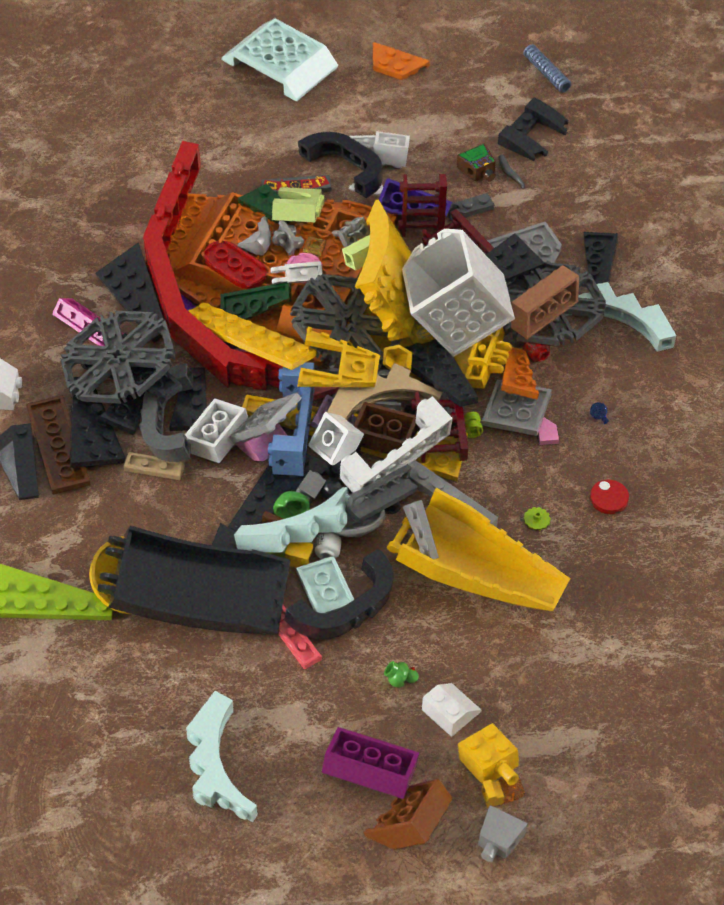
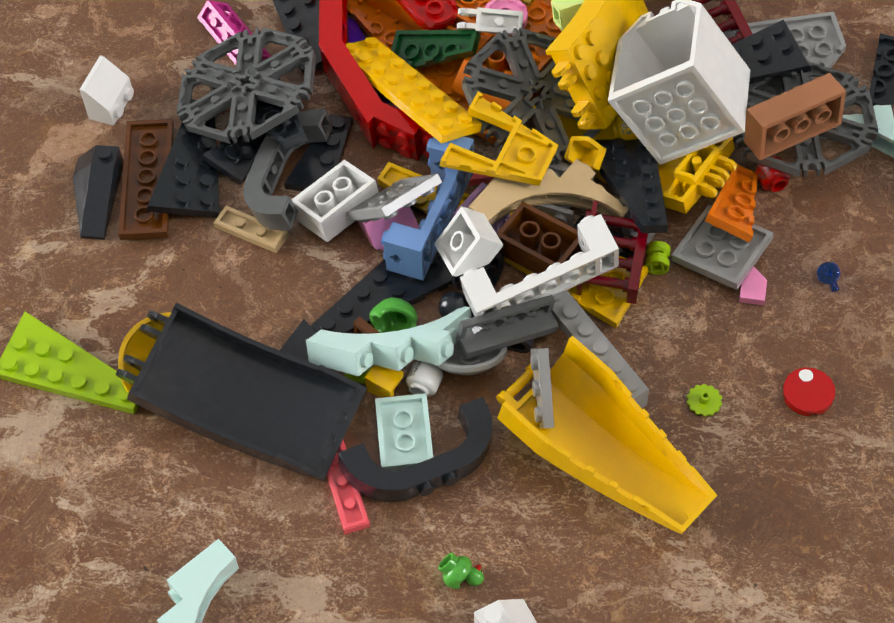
camera: 20 degrees right, 5 degrees up
(311, 485) = (426, 296): light grey brick -> none

